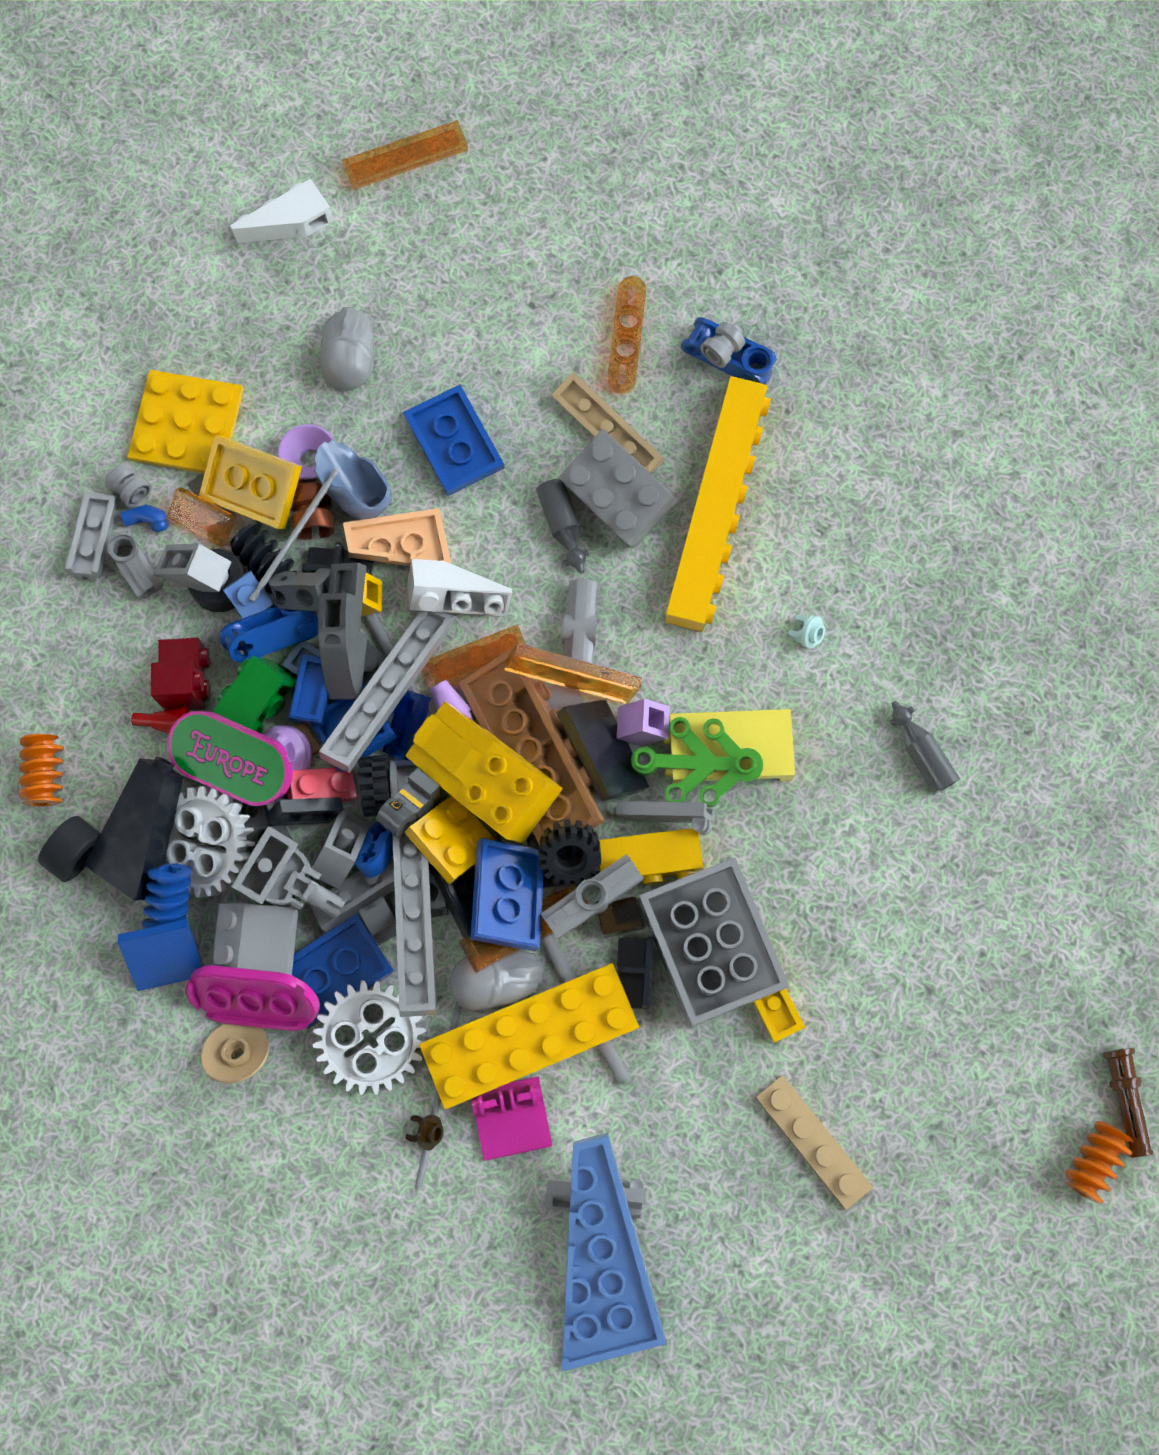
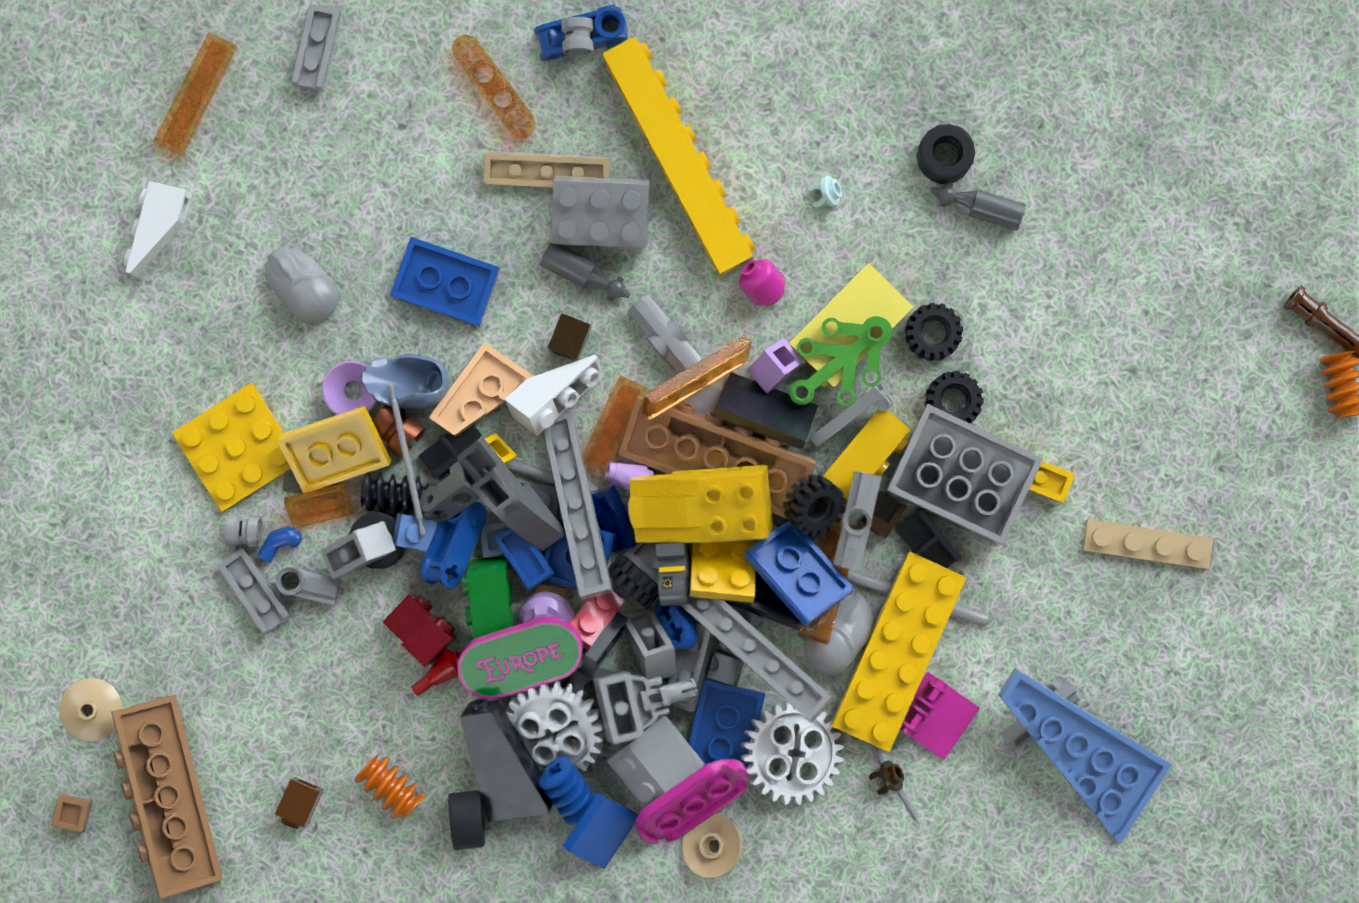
camera: 40 degrees left, 10 degrees up
(506, 561) = (569, 337): none -> dark brown panel
(522, 196) = (316, 48): none -> light grey hinge
(693, 651) = (762, 282): none -> dark pink head
(777, 866) = (966, 385): none -> black tyre
(803, 794) = (938, 313): none -> black tyre
(942, 667) = (957, 137): none -> black tyre

